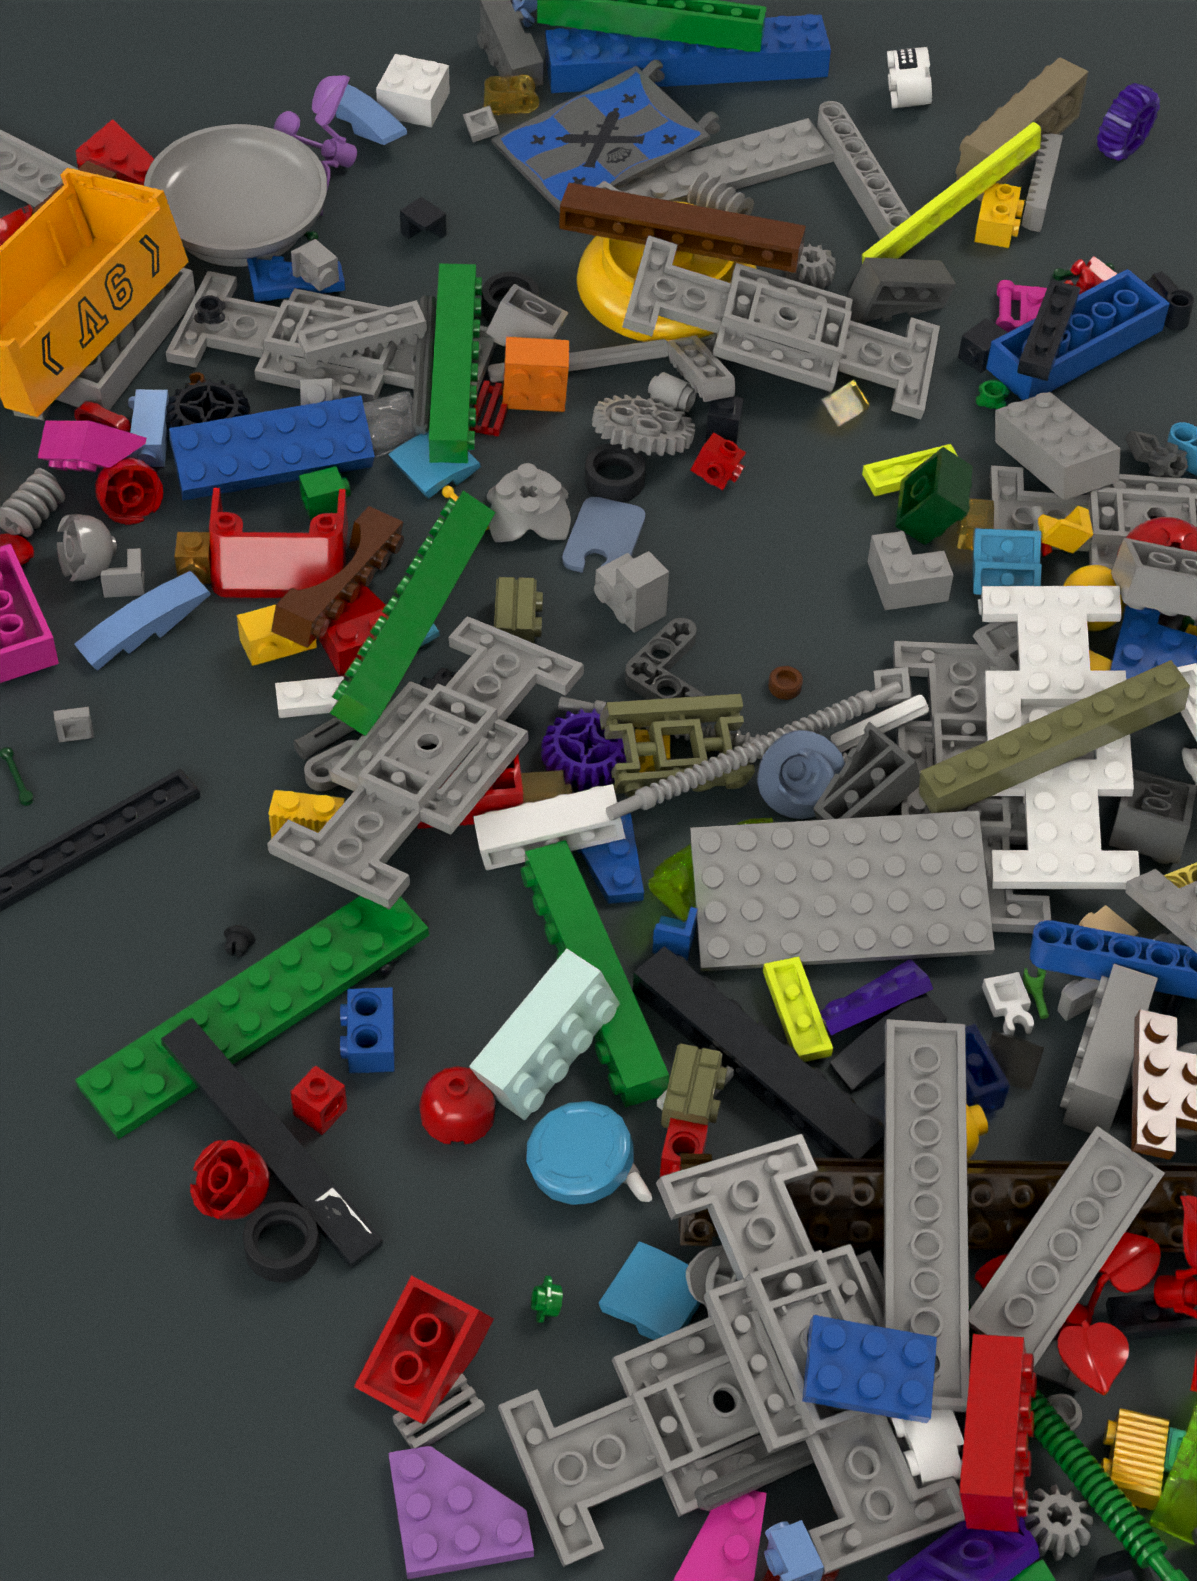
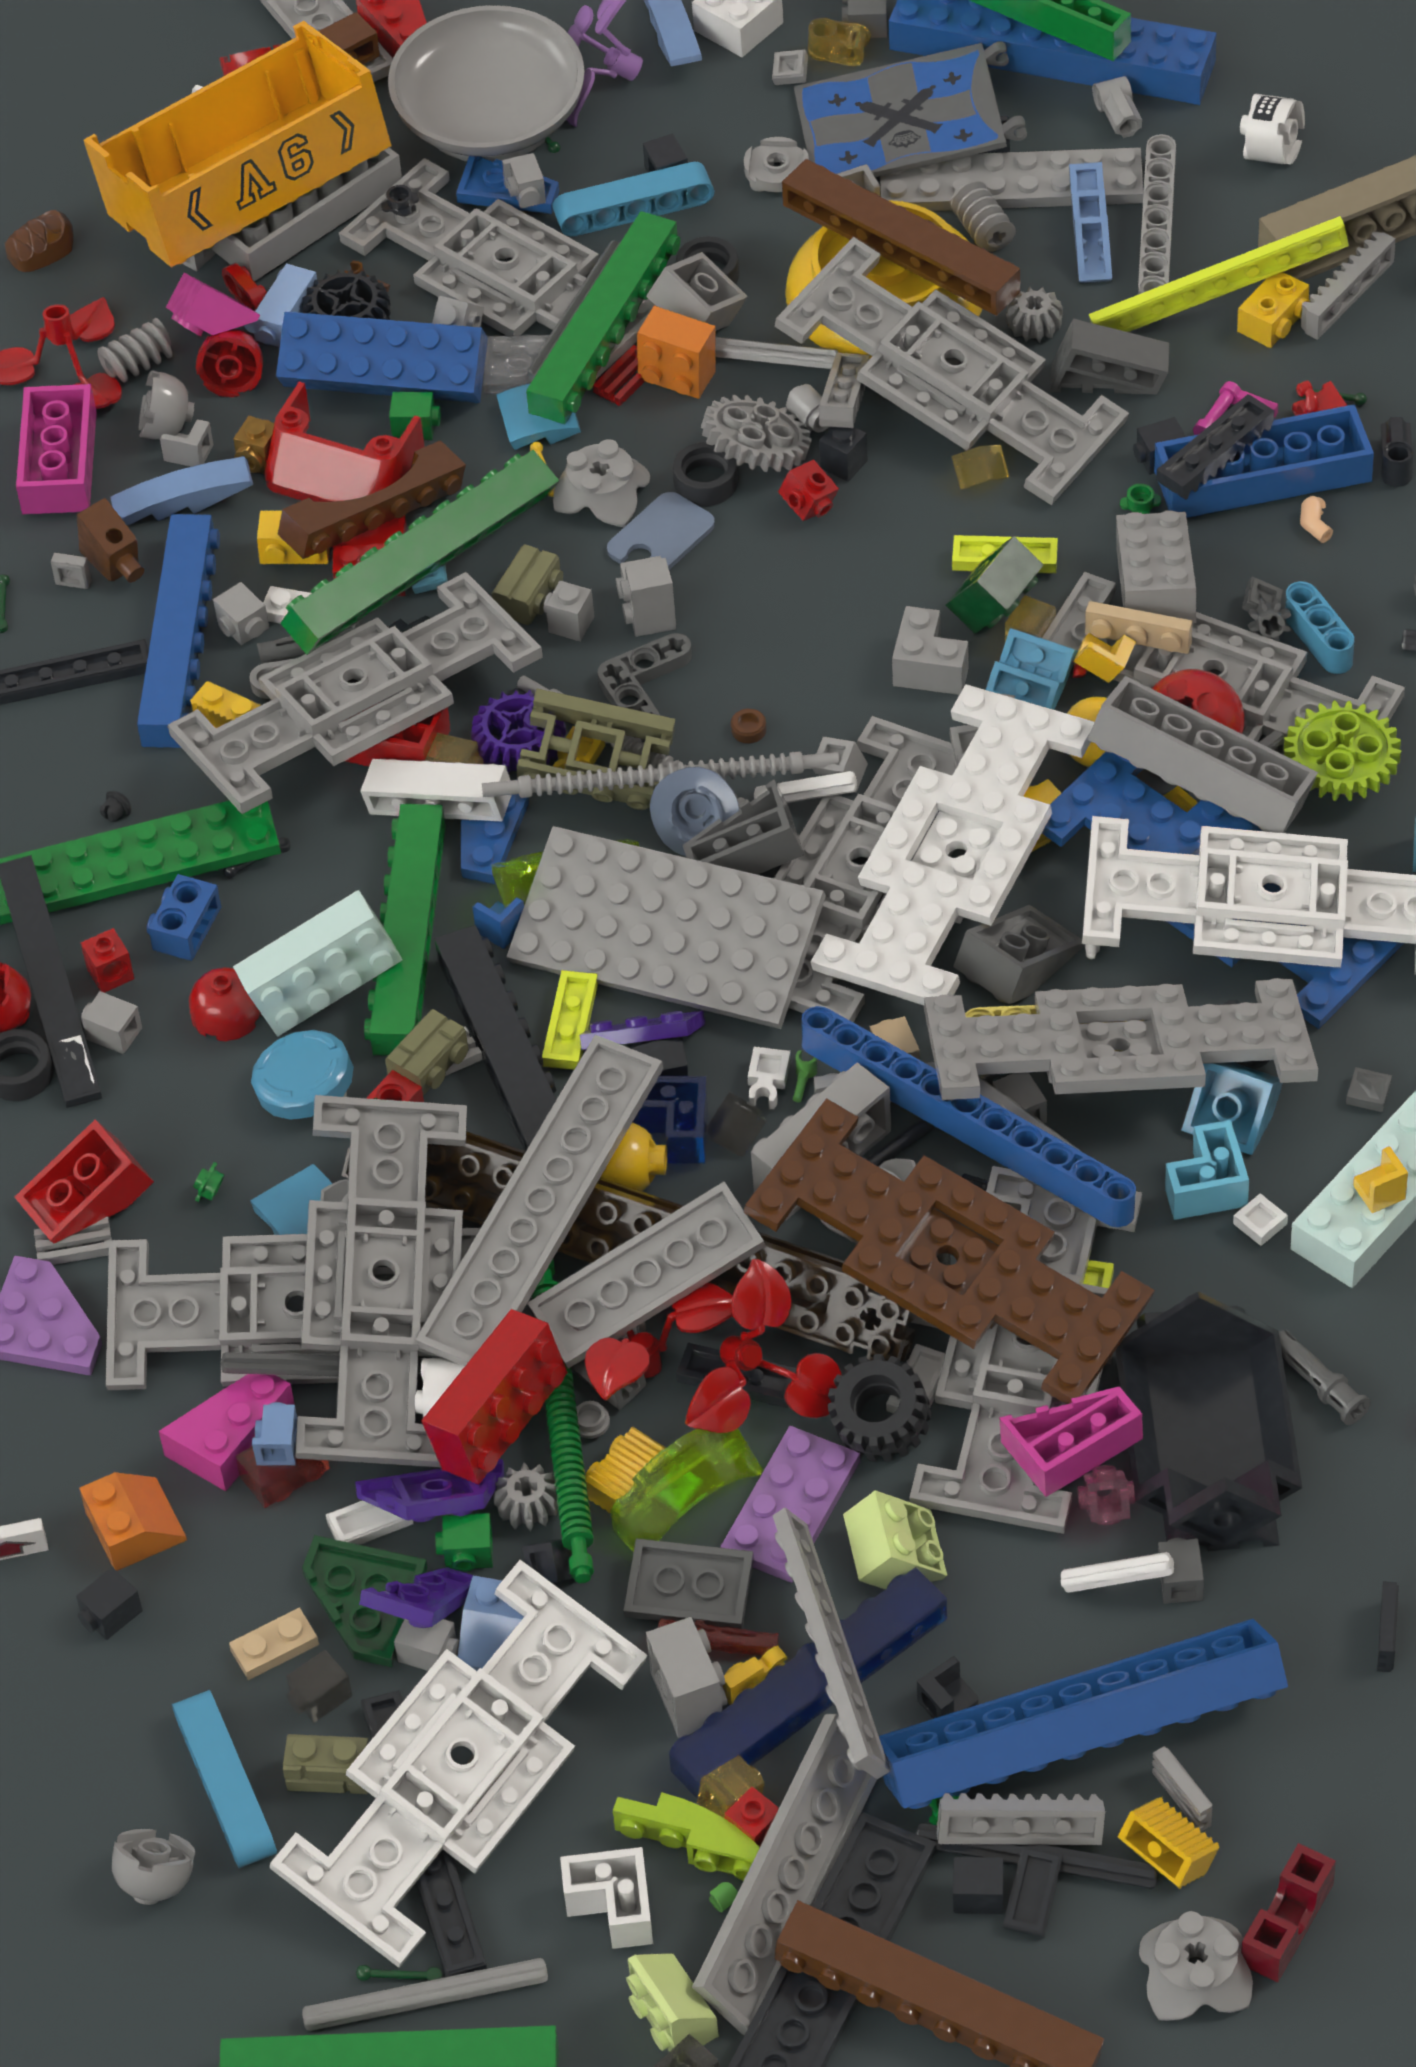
camera: 30 degrees right, 0 degrees up
(102, 686) = (108, 542): none -> reddish brown torso
(210, 753) = (178, 627): none -> blue brick
(263, 717) = (240, 614): none -> light grey brick
(354, 1162) = (111, 1022): none -> light grey brick
(362, 332) = (525, 263): light grey gear -> none
(411, 260) = (623, 199): none -> dark azure beam
(511, 215) = (760, 162): none -> light grey plate
(569, 625) = (569, 610): none -> light grey brick
(765, 85) = (1116, 101): none -> light grey piece
(808, 185) = (1090, 222): none -> medium blue slope
(870, 1369) = (410, 1307): blue plate -> none
(1054, 739) = (930, 846): olive brick -> none
(1092, 494) = (1143, 627): none -> tan plate
(1137, 371) = (1311, 518): none -> light nougat arm

